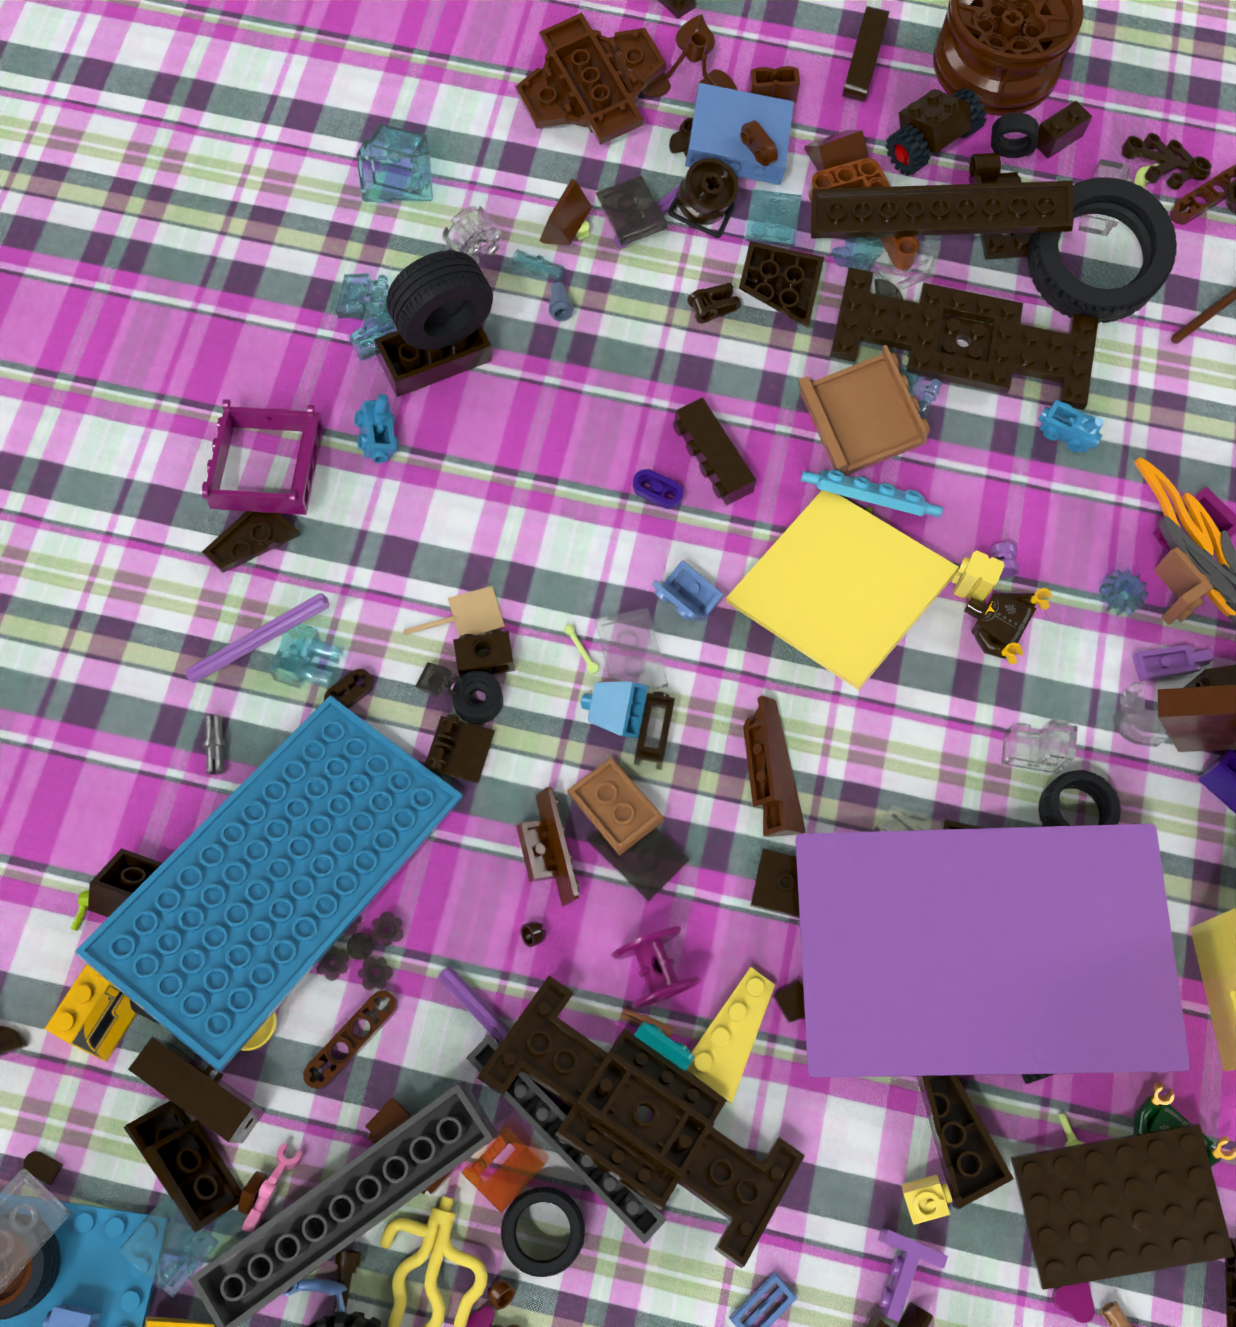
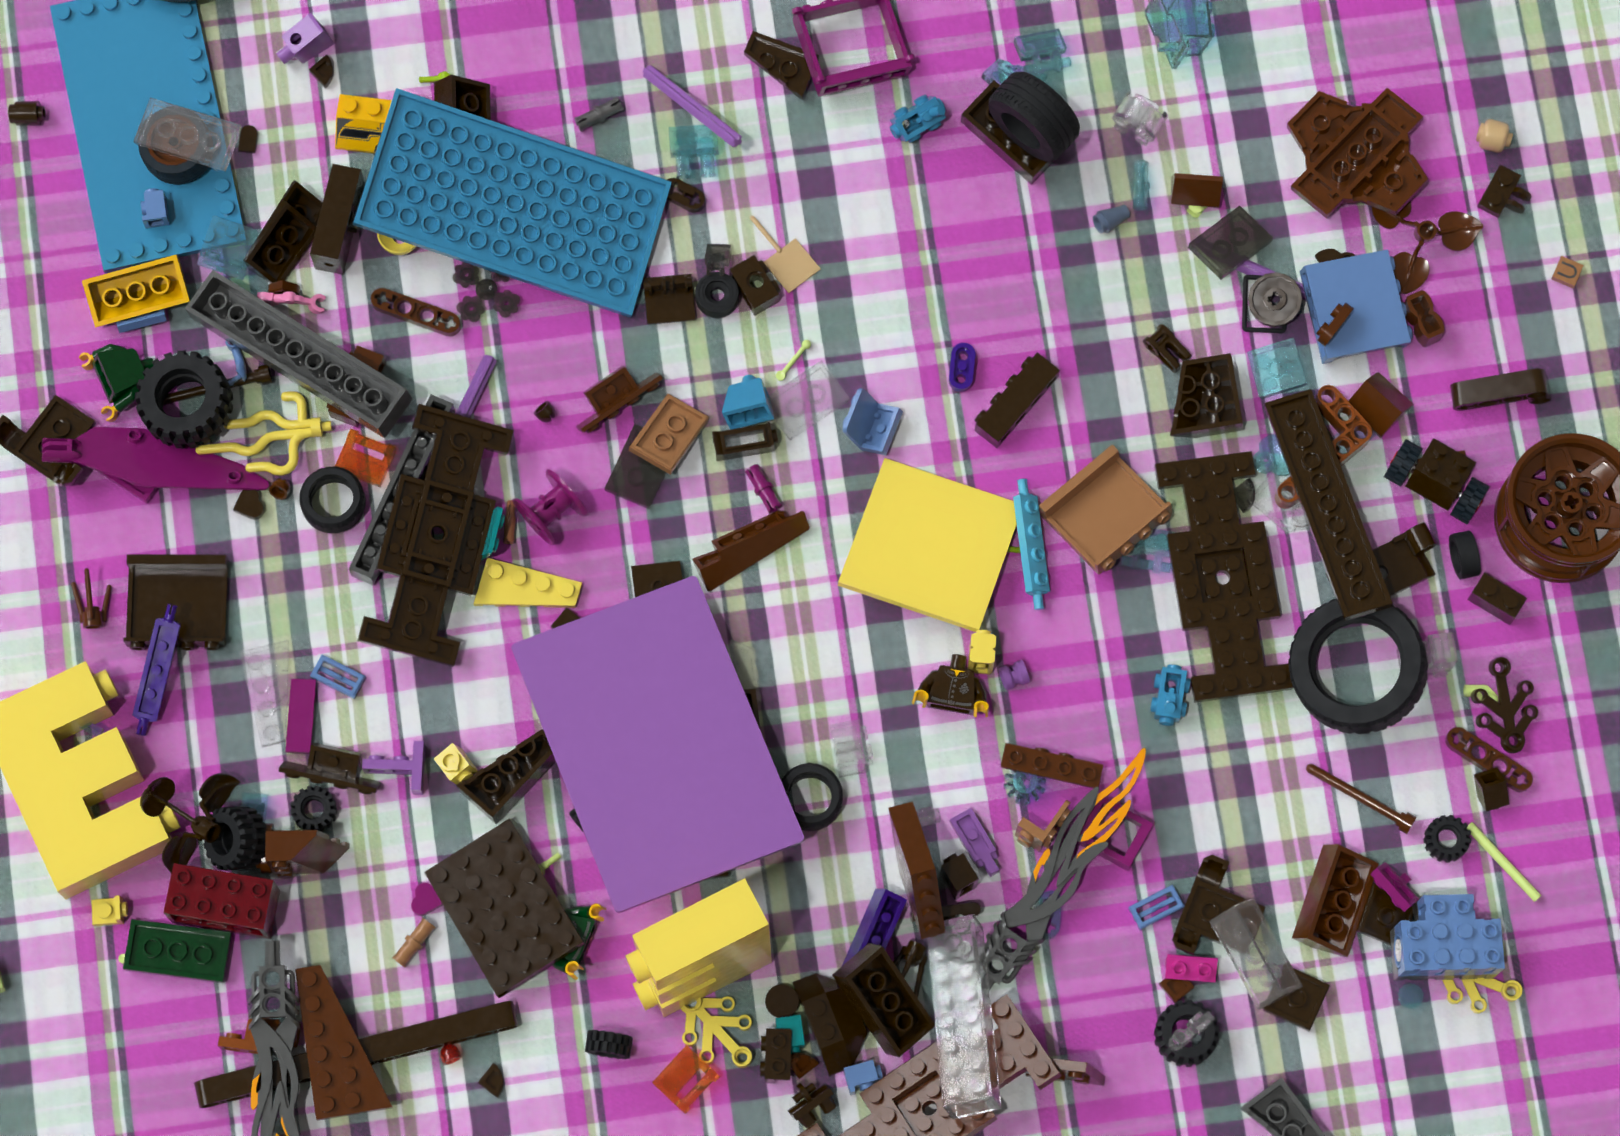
camera: 70 degrees right, 5 degrees up
(714, 730) = (763, 488): none -> magenta pin
(1118, 556) = (1052, 766): none -> reddish brown bracket

